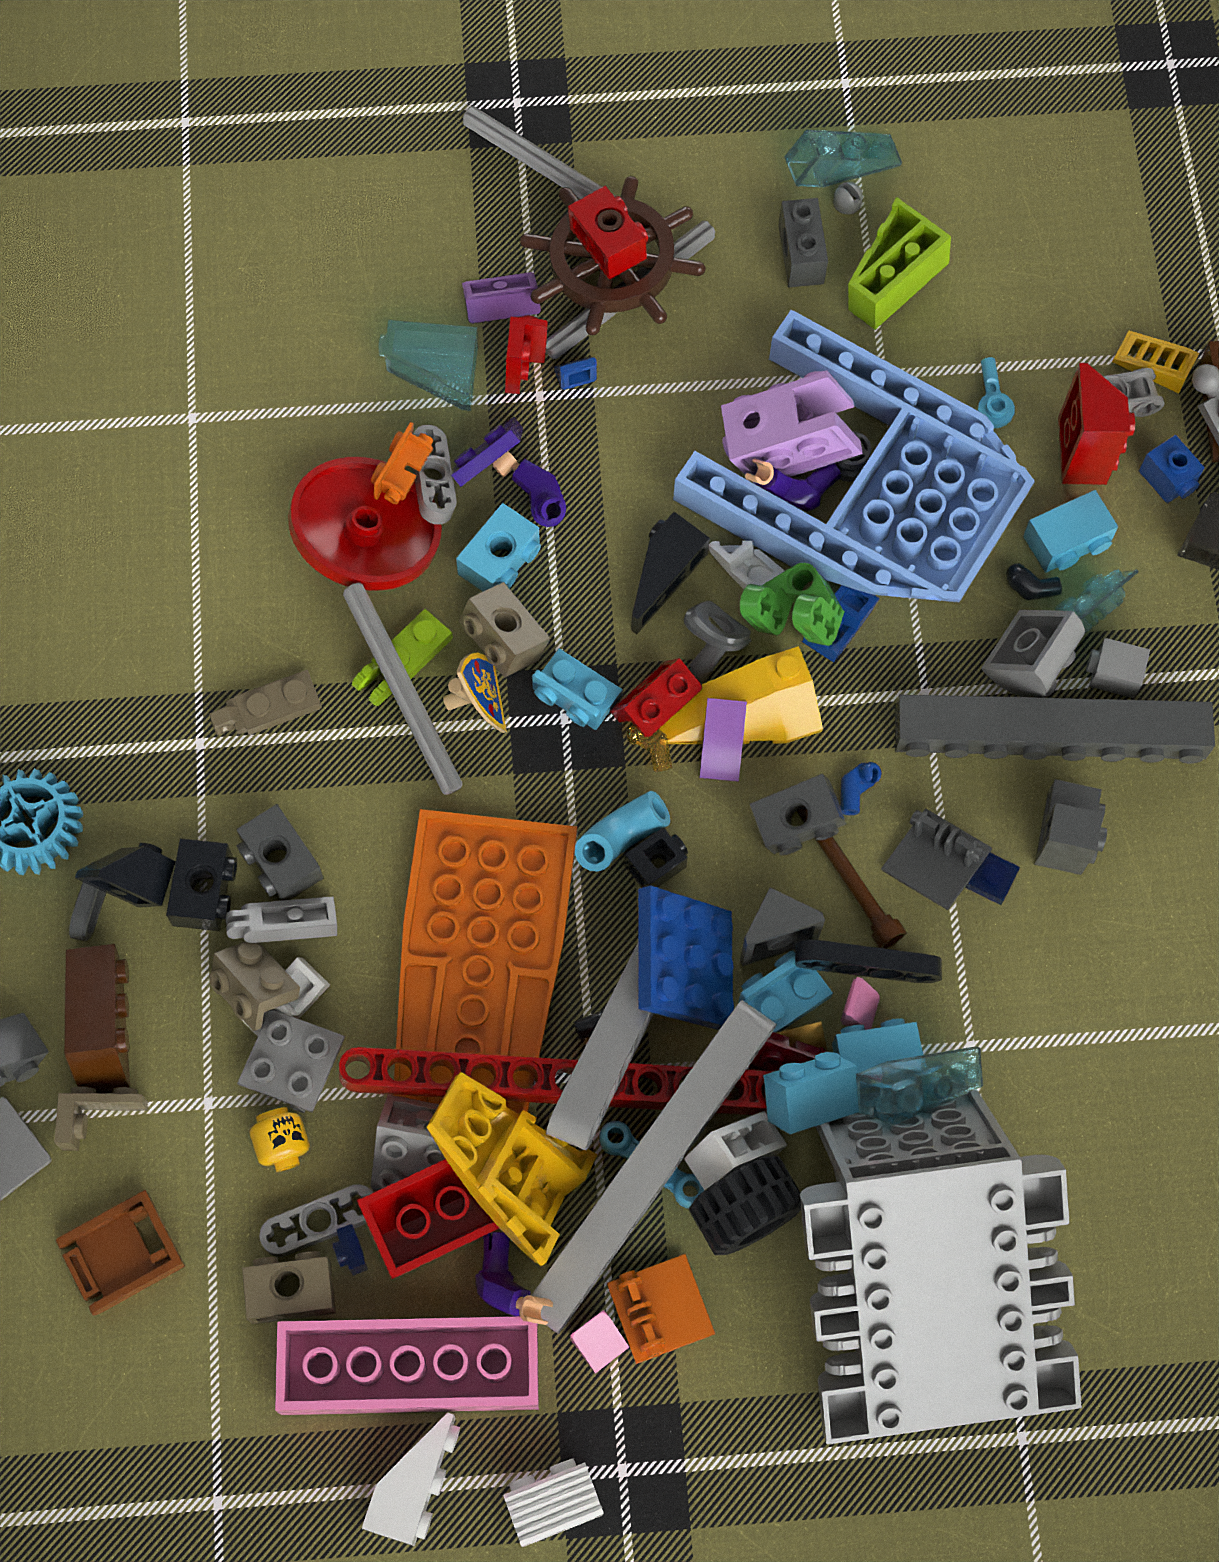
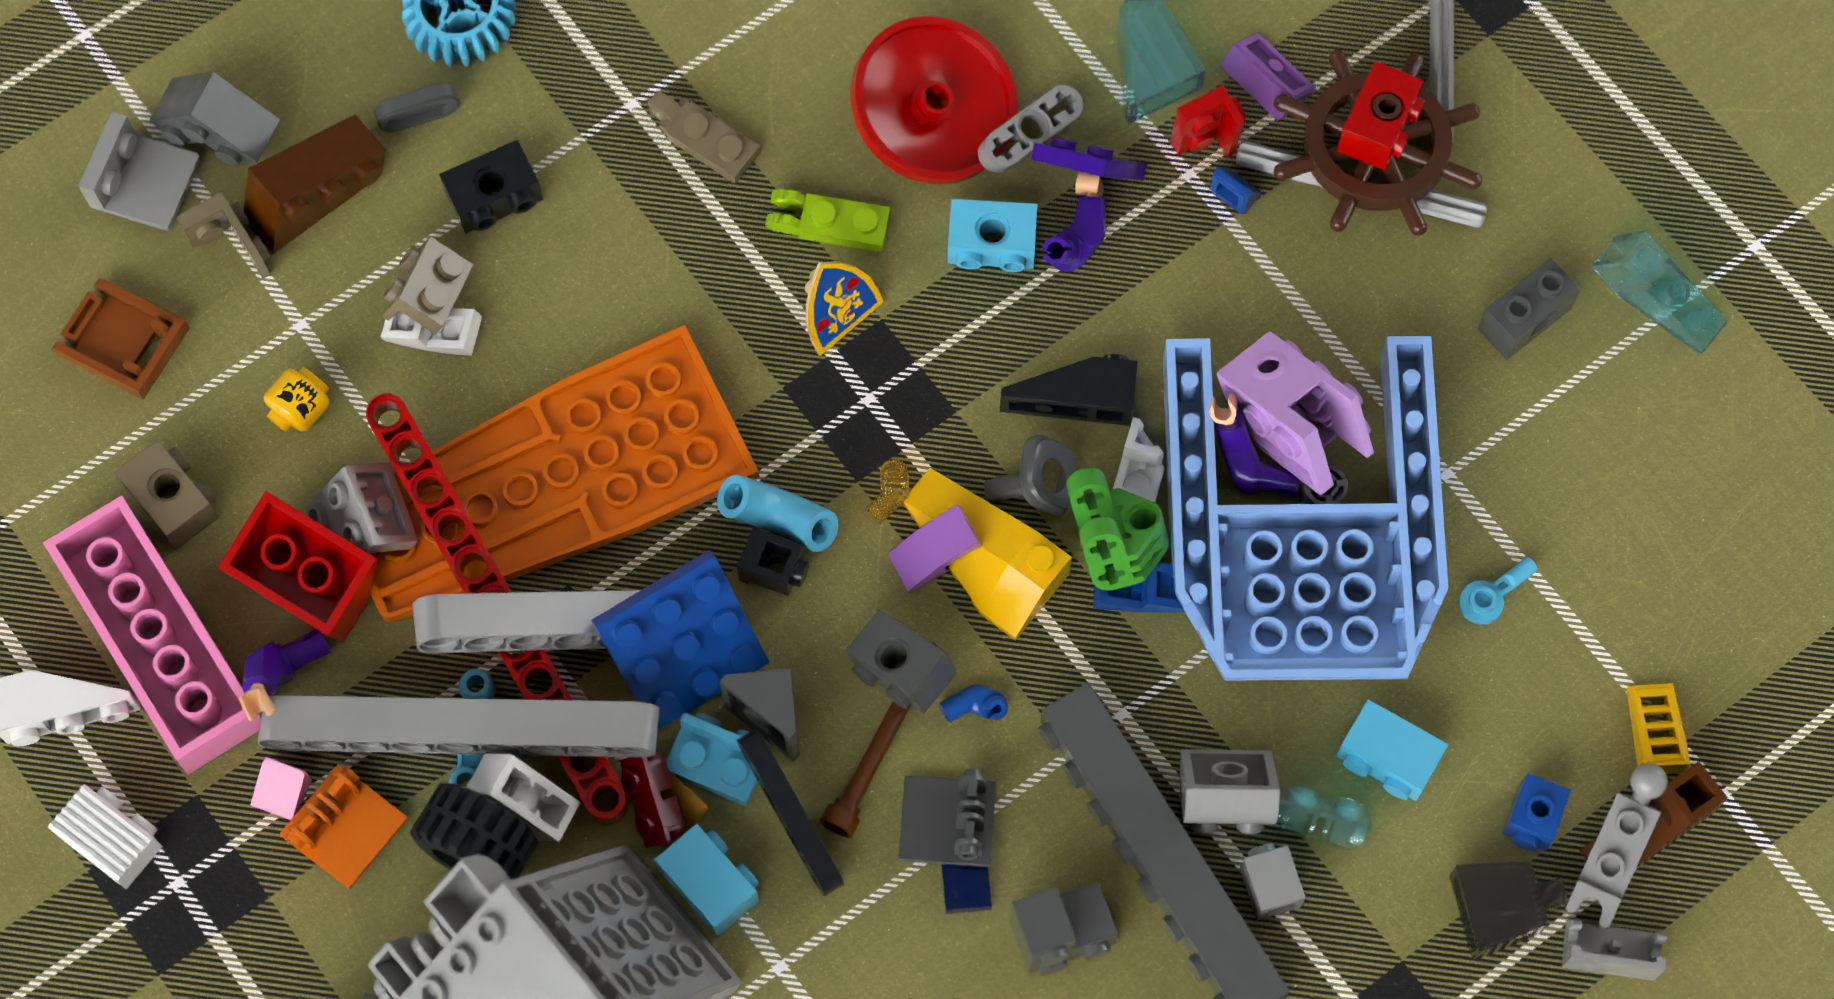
camera: 60 degrees right, 0 degrees up
(131, 874) = (459, 121): black slope -> none
(274, 832) = (564, 256): dark grey brick -> none
(283, 920) = (502, 277): light grey hinge -> none
(291, 1061) = (373, 362): light grey hinge -> none
(293, 1241) = (215, 474): light grey beam -> none
(349, 1250) = (230, 521): clear blue plate -> none
(393, 477) = (1028, 86): orange hinge -> none
(402, 689) = (790, 235): light grey axle -> none
(503, 629) = (928, 269): dark tan brick -> none
(508, 1163) = (365, 596): yellow wedge -> none
(576, 690) = (901, 390): medium azure bracket -> none
(658, 697) = (936, 465): red bracket -> none
(811, 1092) = (618, 830): medium azure brick -> none
(843, 198) = (1610, 322): light grey hinge -> none
(860, 1004) = (749, 835): bright pink slope -> none
(897, 265) = (1566, 411): lime wedge -> none
(917, 1083) = (691, 926): clear light blue slope -> none
(1029, 586) = (1305, 747): black arm -> none
(1092, 428) = (1502, 699): red slope -> none
(1140, 390) = (1592, 722): light grey piece -> none

